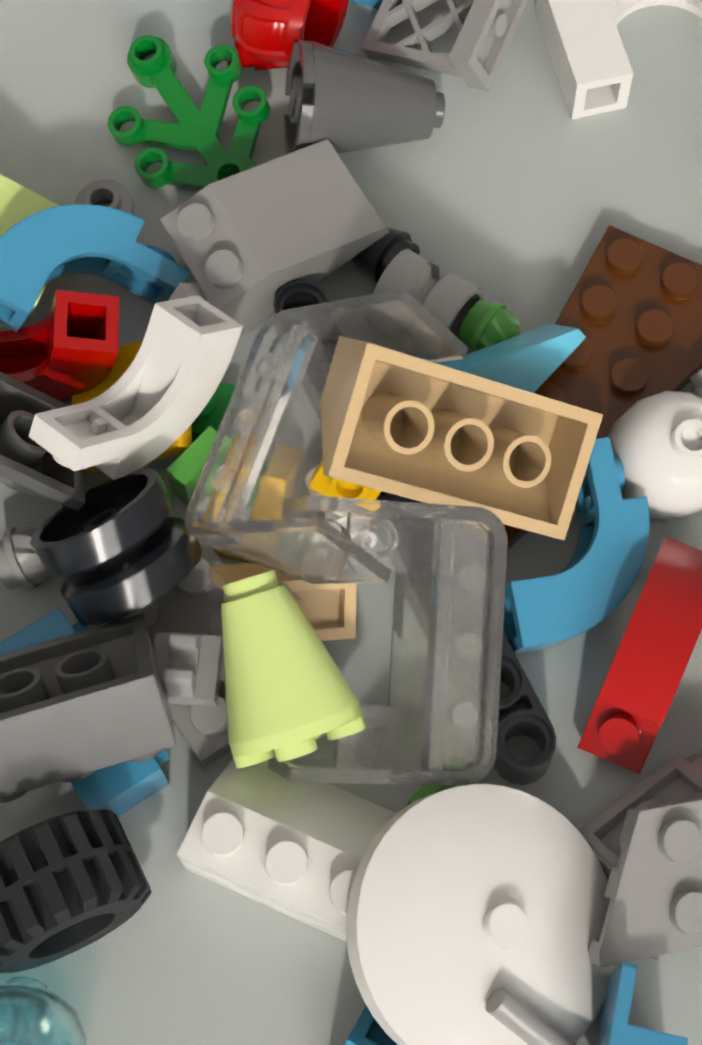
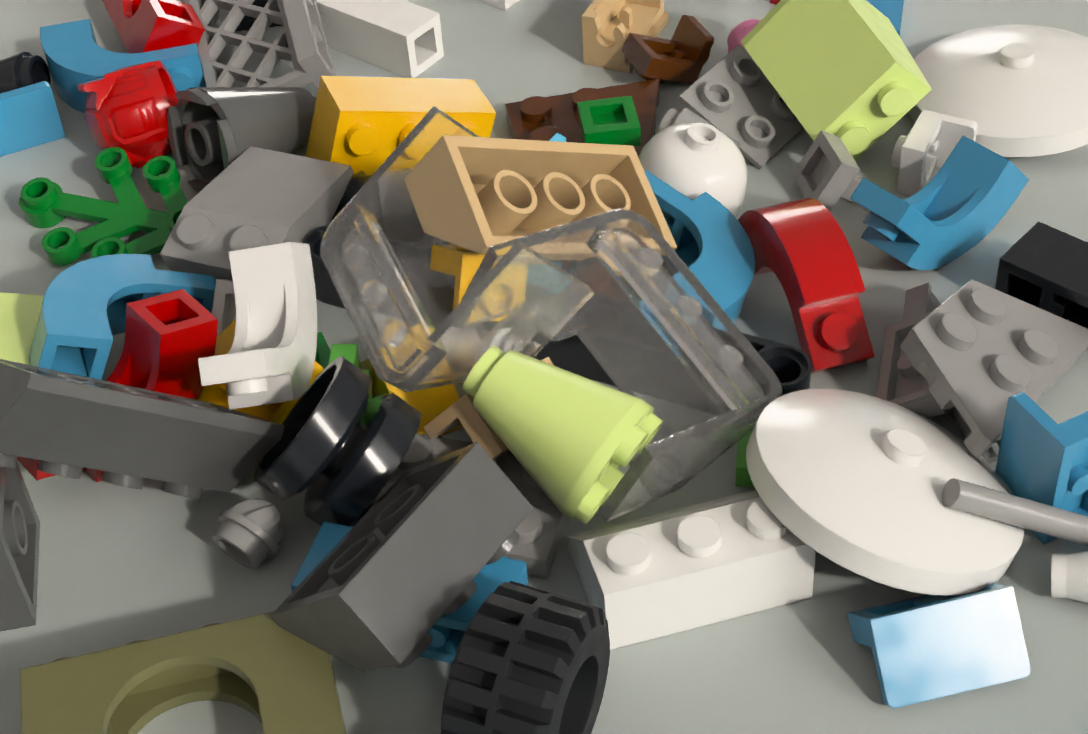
camera: 40 degrees left, 25 degrees down
(478, 198) = (368, 117): none -> yellow wedge
(649, 339) = (609, 121): none -> green plate

